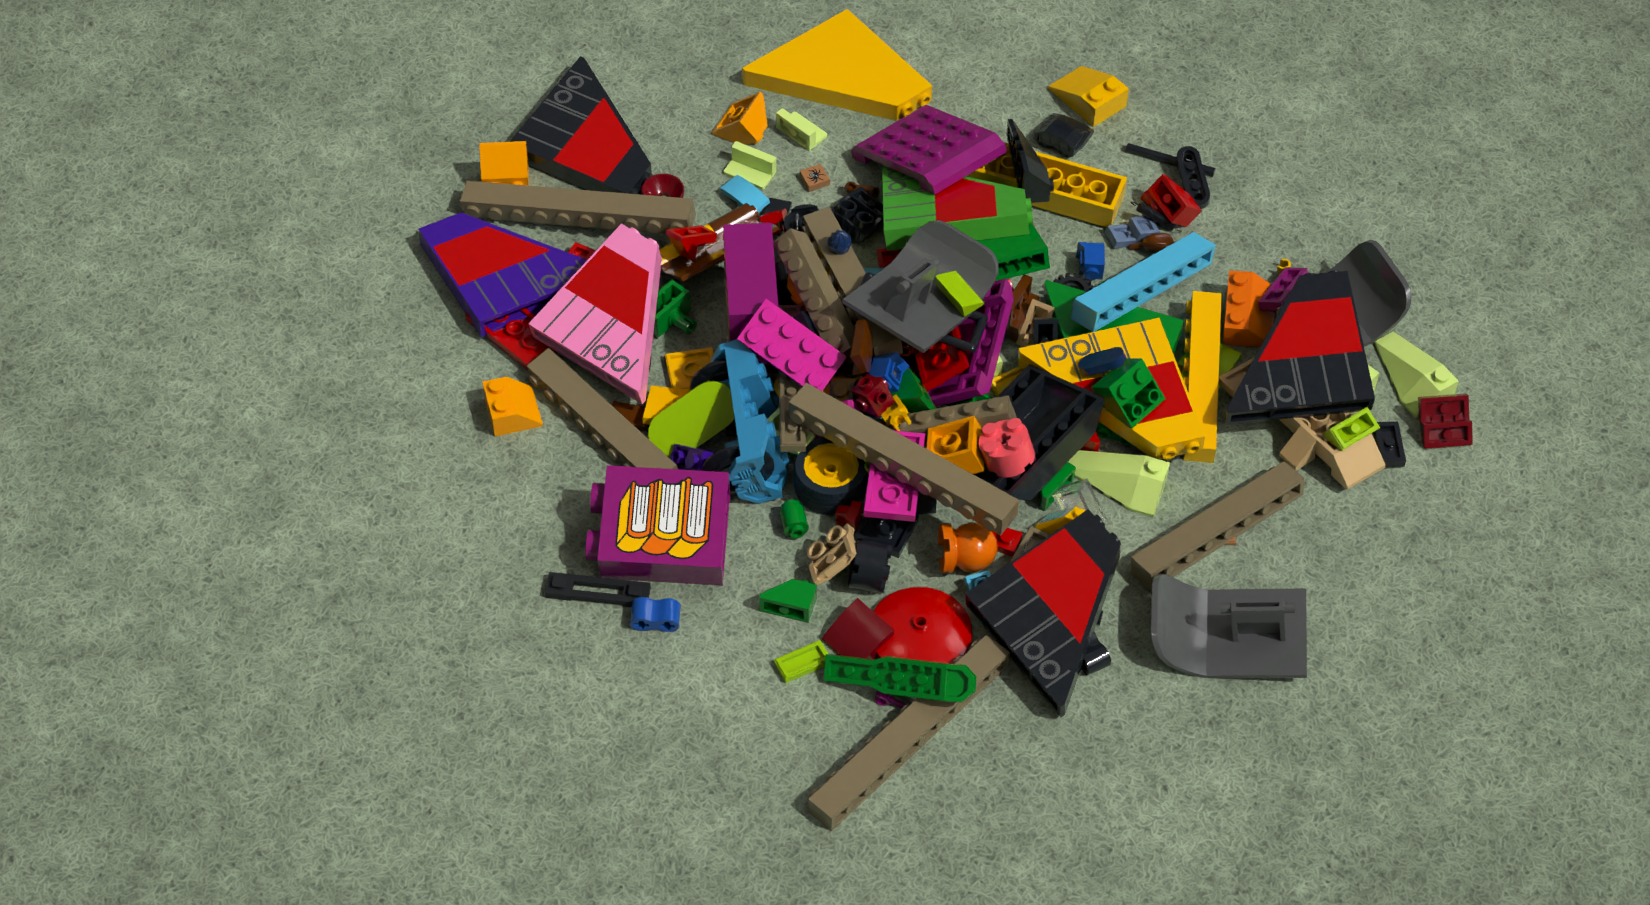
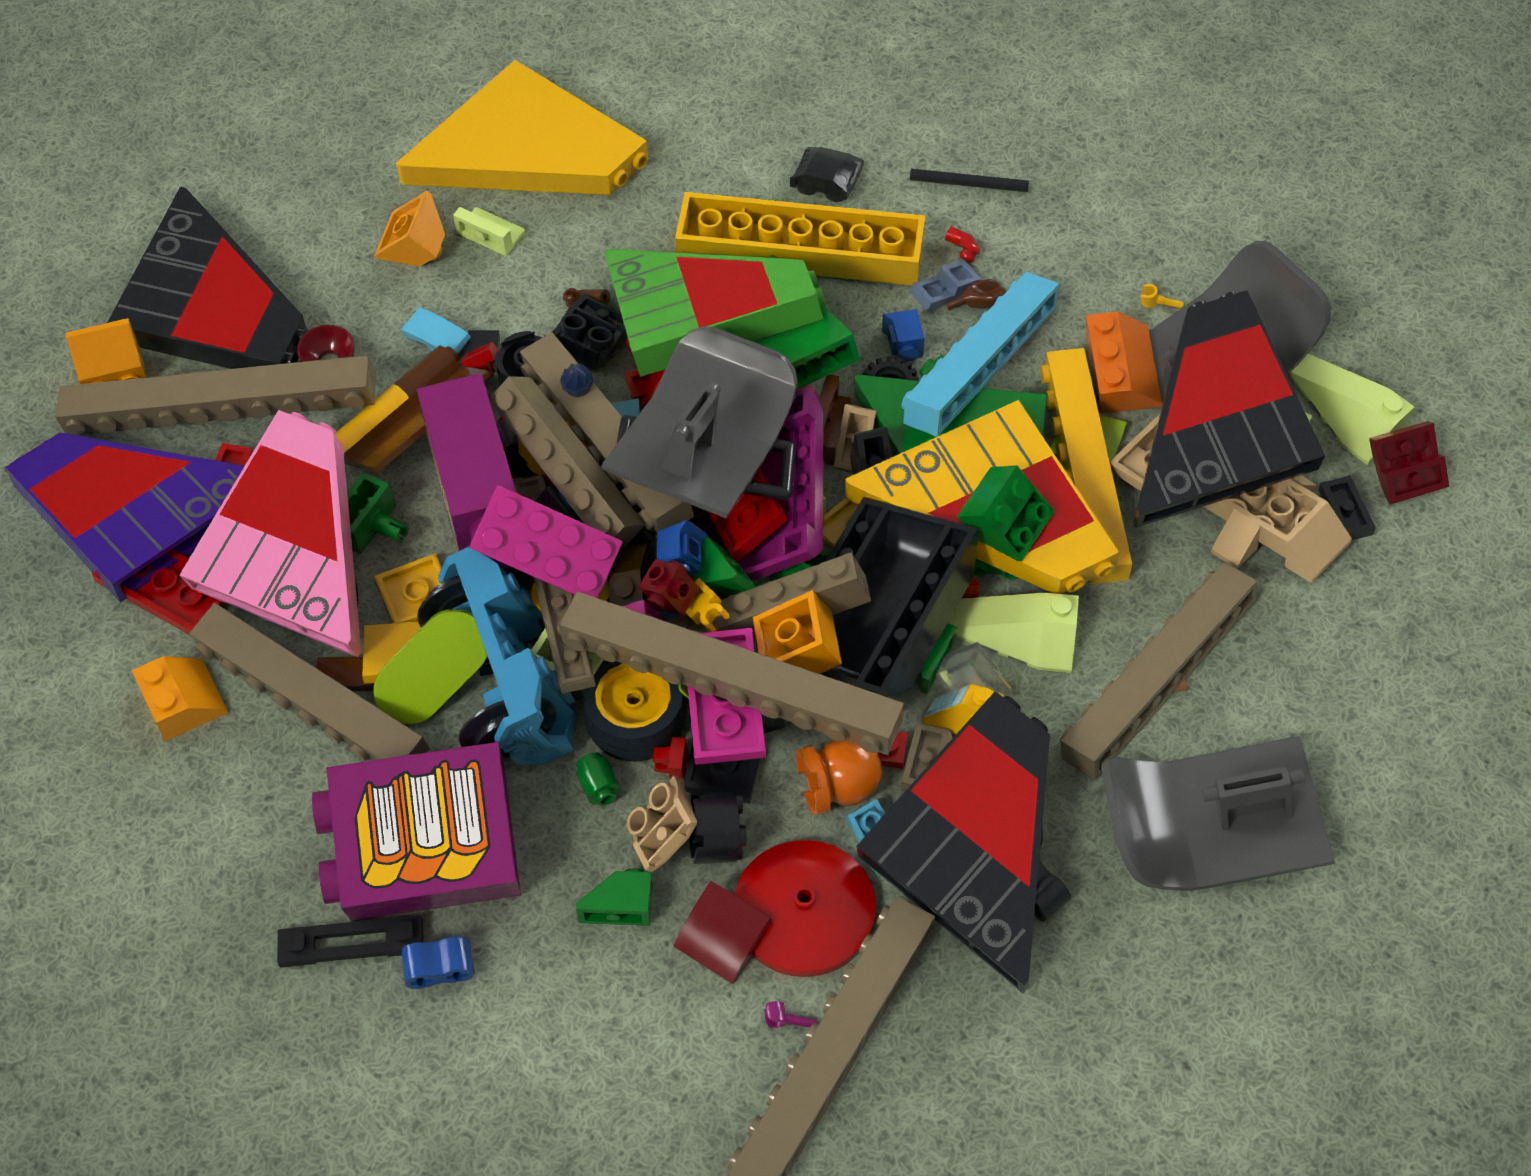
camera: 10 degrees left, 5 degrees up
(689, 238) = (373, 411): red slope -> none
(689, 457) = (442, 720): dark purple slope -> none
(751, 165) = (435, 291): yellowish green panel -> none
(801, 661) = (654, 986): lime tile -> none
(814, 177) = (521, 291): medium nougat tile -> none
(862, 348) = (641, 525): reddish brown slope -> none
(903, 676) = (800, 987): green piece -> none
(931, 148) = (667, 225): magenta slope -> none
(958, 292) = (752, 420): lime slope -> none
(1006, 447) = (865, 626): coral brick -> none
(1027, 166) = (798, 229): black wedge -> none
(1091, 94) = (849, 113): yellow slope -> none
(1102, 361) = (962, 477): dark blue tile -> none
(1155, 216) = (971, 259): black piece -> none
(1174, 201) = (990, 235): red slope -> none
(1193, 170) = (1005, 189): black plate -> none
(1280, 289) = (1159, 326): magenta plate -> none
(1352, 429) = (1302, 502): lime slope -> none

